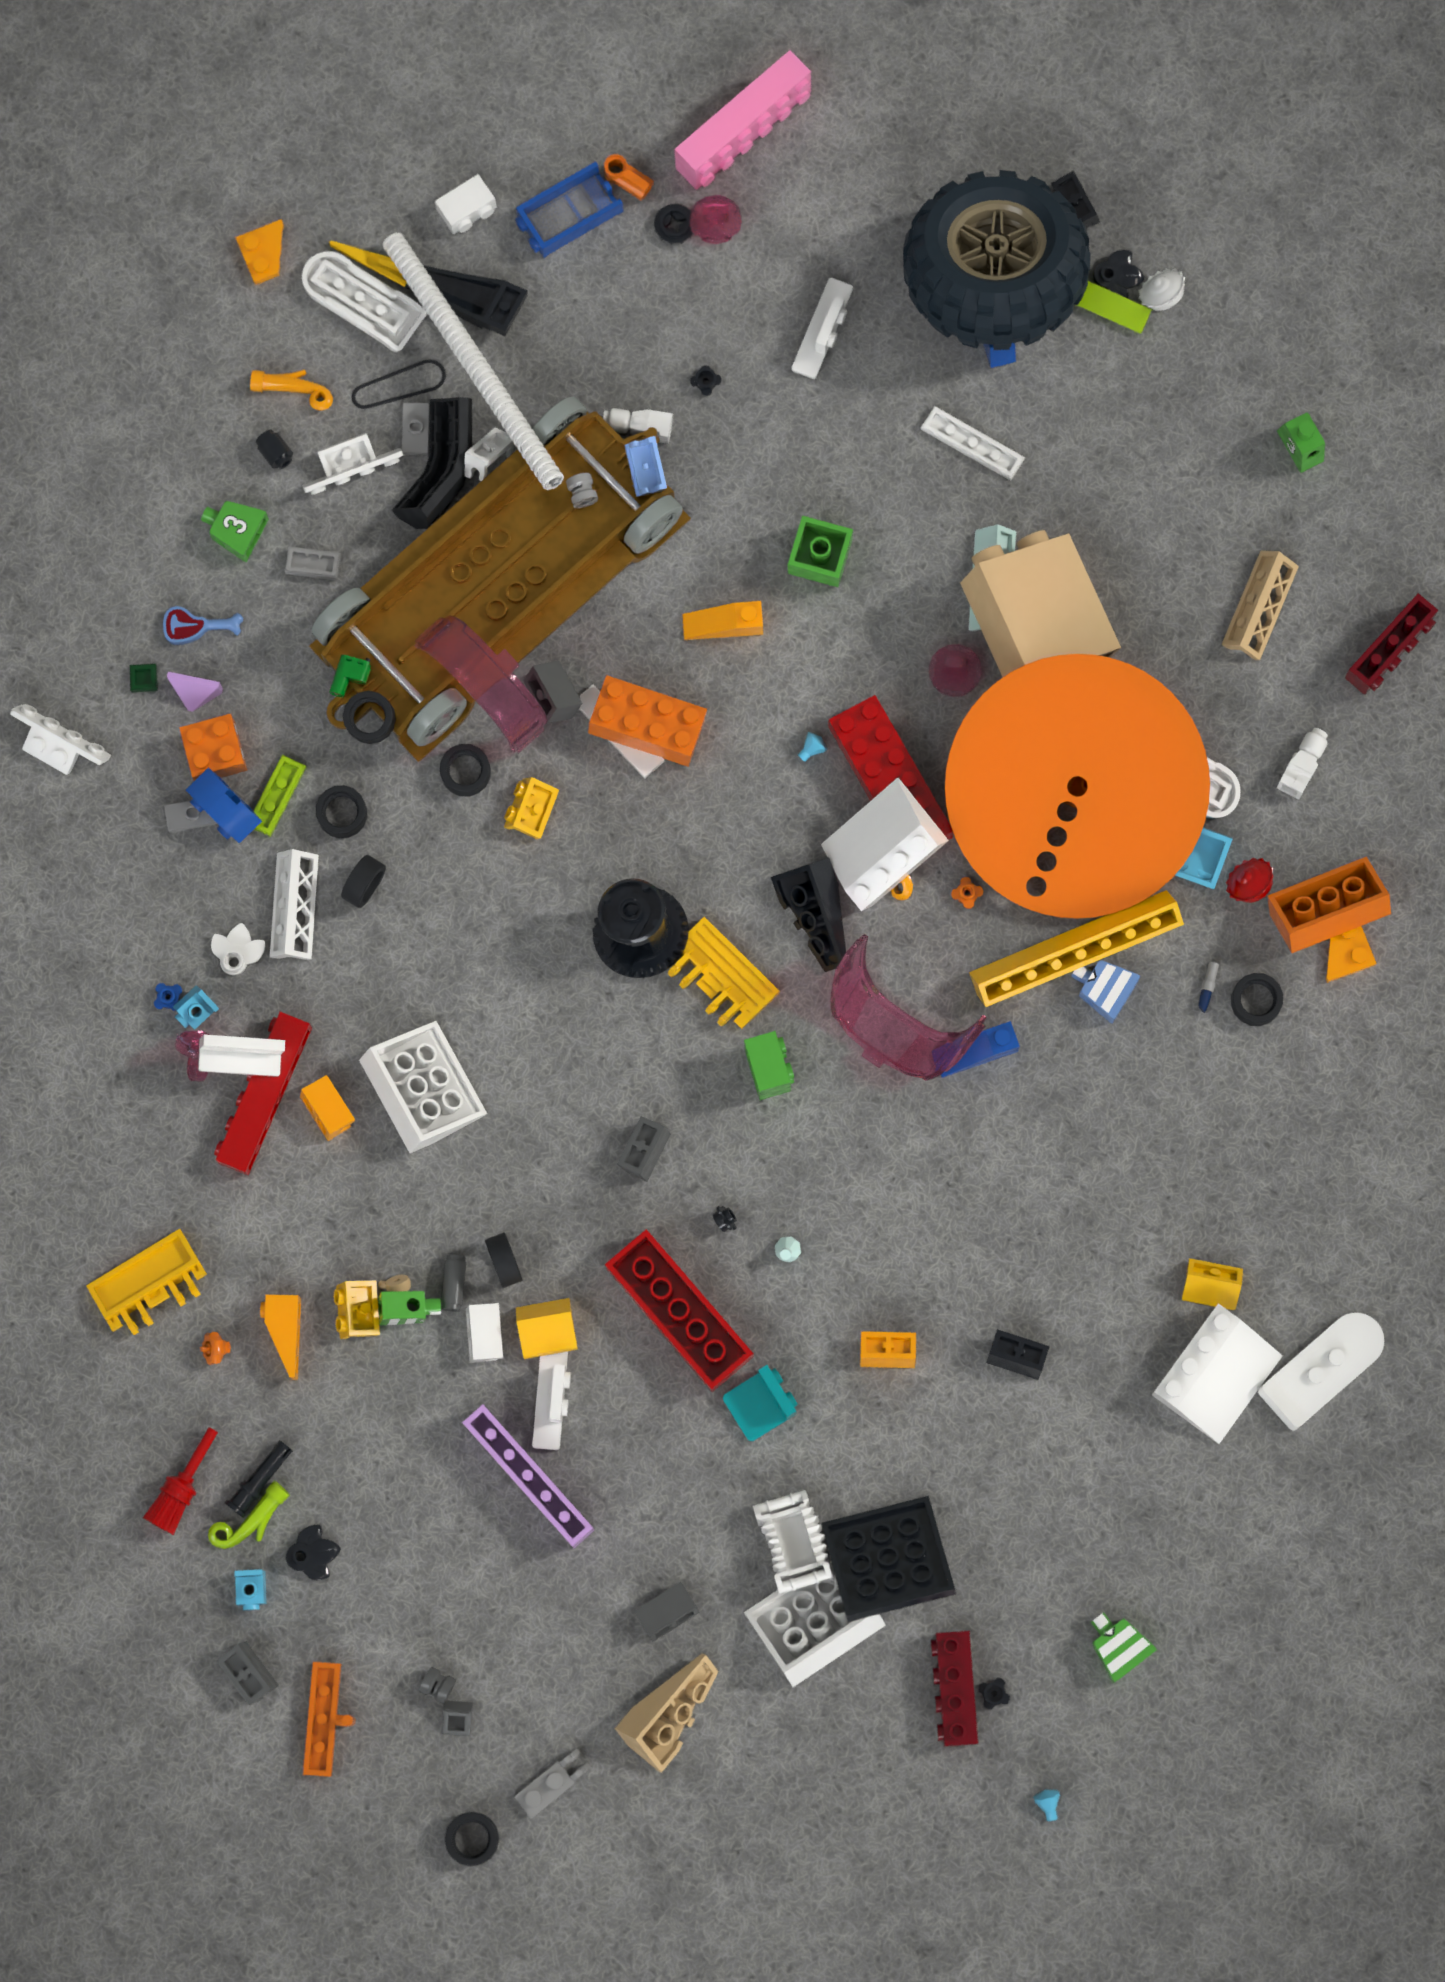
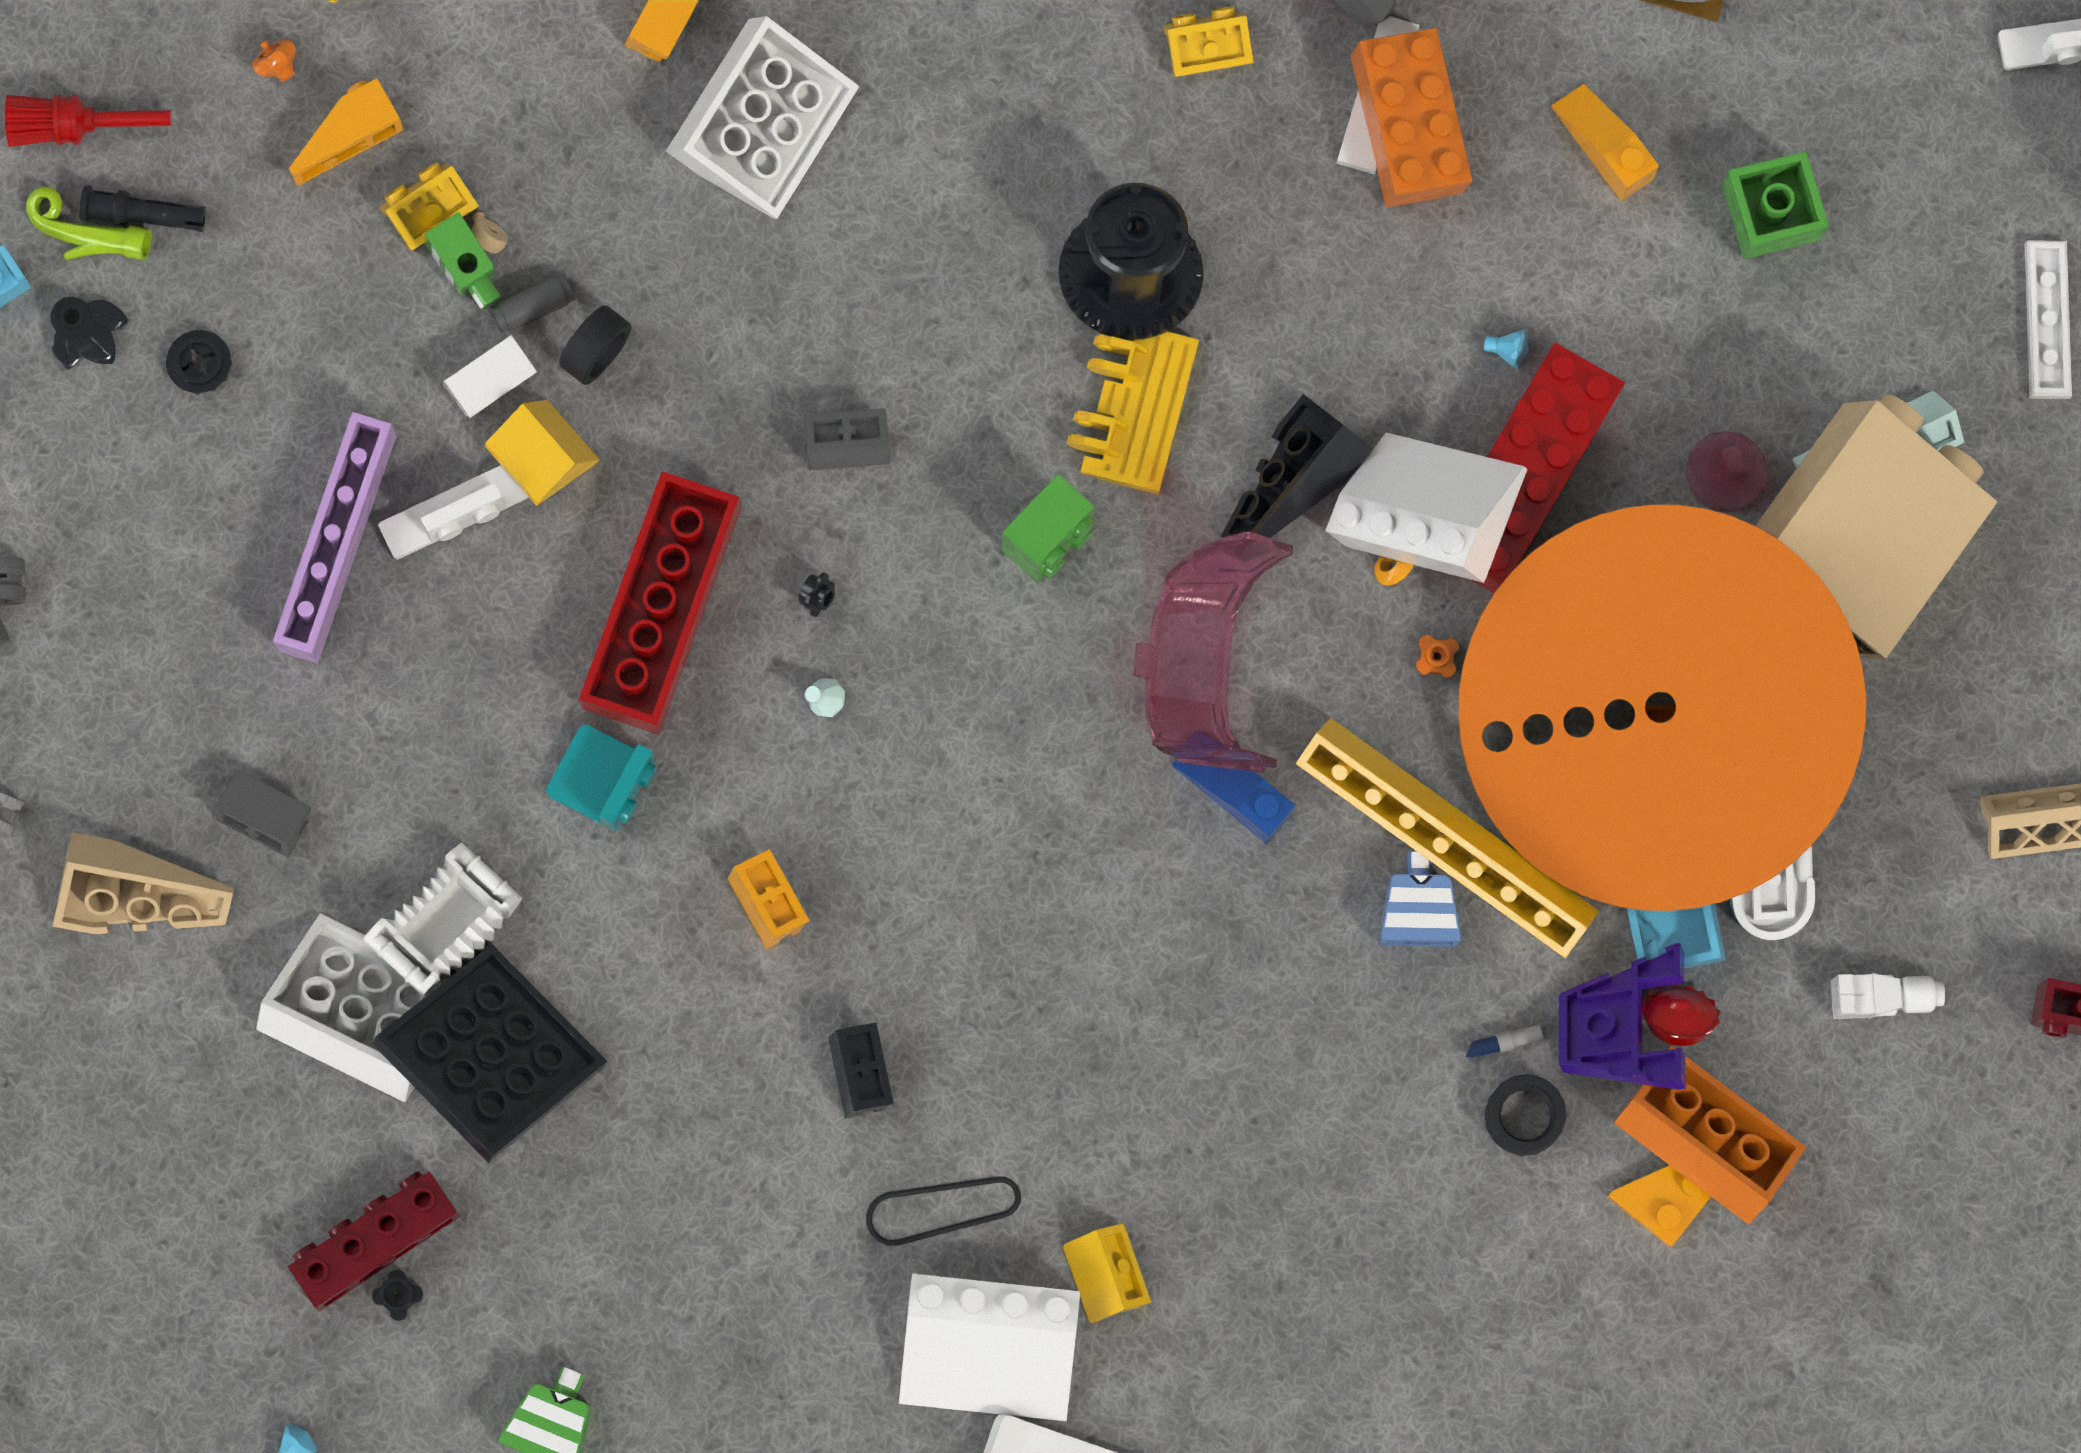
camera: 50 degrees right, 0 degrees up
(362, 1487) = (205, 344): none -> black gear
(1134, 1359) = (1011, 1183): none -> black piece
(1234, 926) = (1604, 1025): none -> dark purple wing

